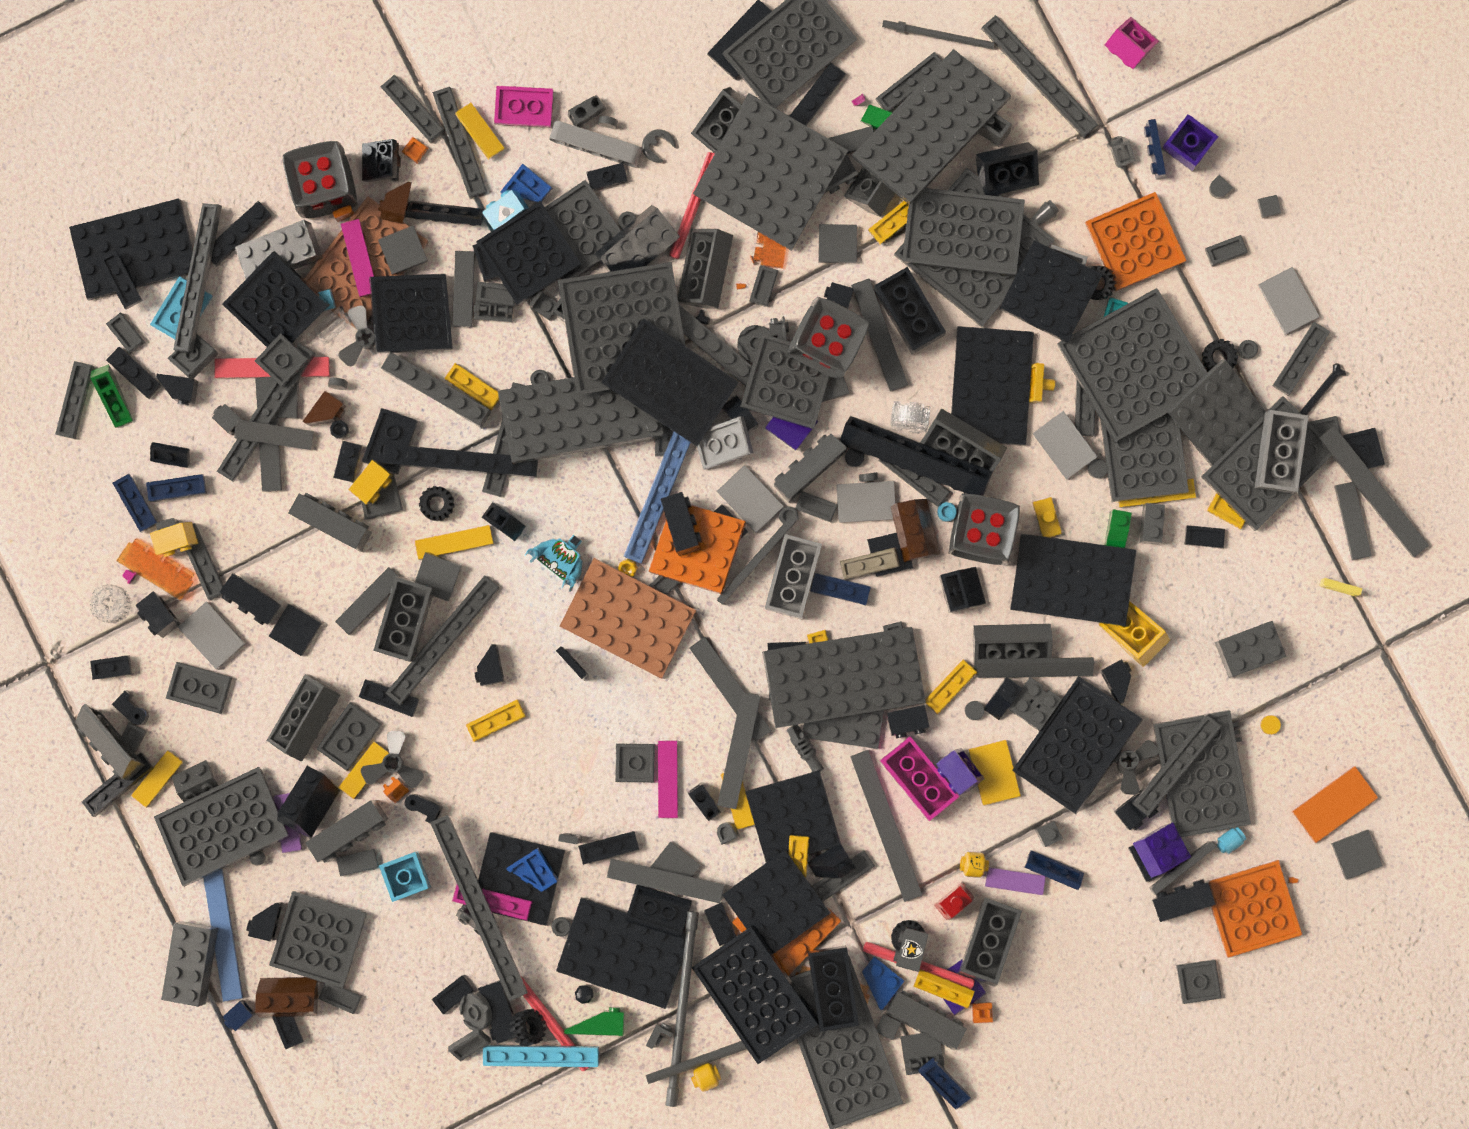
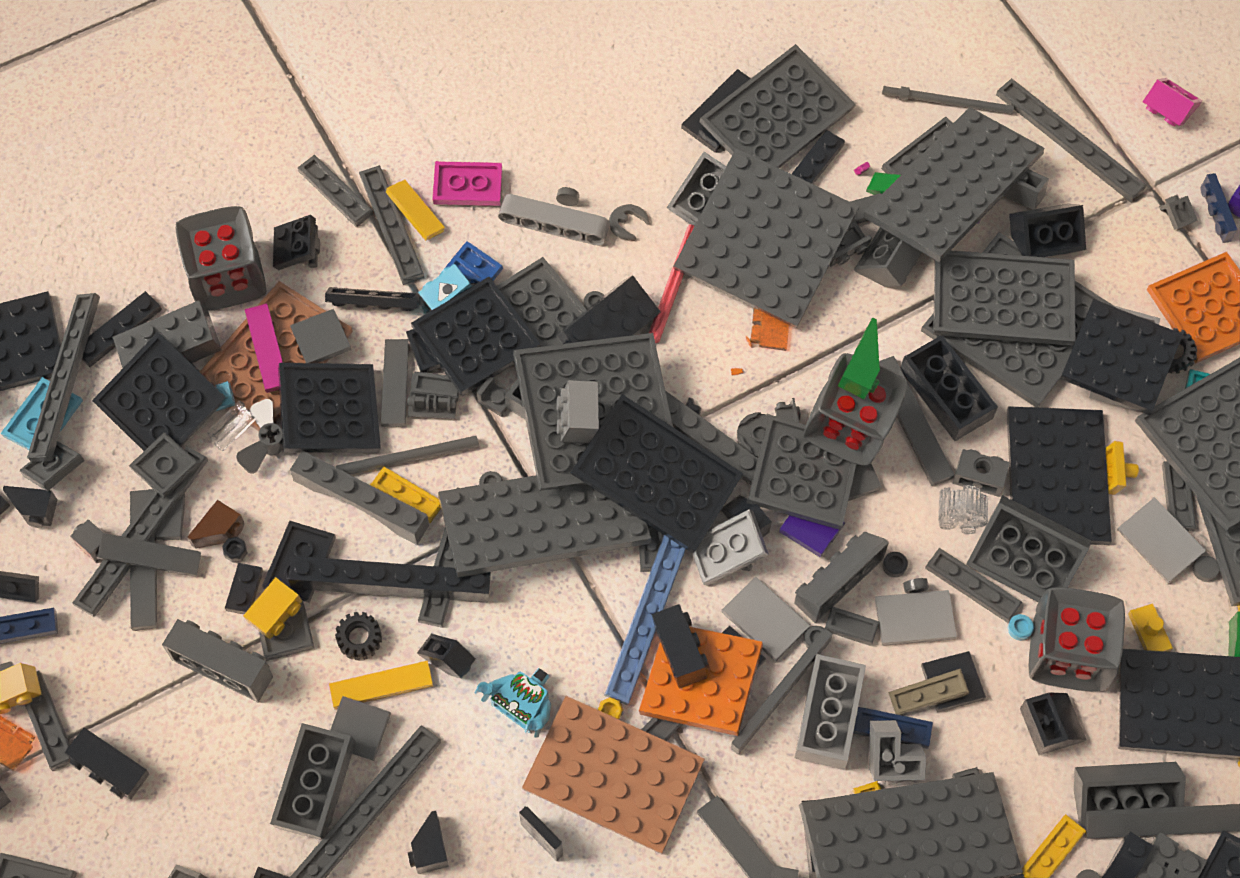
camera: 10 degrees left, 20 degrees down
(211, 635) = (51, 816): light grey tile -> none
(250, 369) = (125, 480): coral tile -> none
(295, 630) = (165, 805): black tile -> none
(337, 383) = (234, 494): dark grey tile -> none
(343, 213) = (248, 300): orange tile -> none
(367, 602) = (262, 766): dark grey tile -> none
(395, 203) = (312, 286): reddish brown slope -> none
(415, 150) = (337, 233): orange tile -> none
(474, 353) = (409, 455): none -> dark grey piece
(586, 111) = (541, 184): dark grey leg -> none
(607, 176) = (569, 255): black plate -> none
(608, 336) = (578, 411): none -> light grey brick
(705, 268) = (692, 349): dark grey slope -> none
(763, 286) = (764, 369): dark grey tile -> none
(833, 311) = (864, 365): none -> green slope
(837, 243) = (848, 318): dark grey tile -> none
(838, 615) = (891, 759): none -> light grey brick
(890, 223) = (913, 294): yellow plate -> none
(915, 457) = (974, 555): black brick -> none
(915, 529) = (982, 648): reddish brown slope -> none
(935, 392) = (990, 482): none -> dark grey brick
(1045, 212) = (1100, 277): dark grey cone -> none

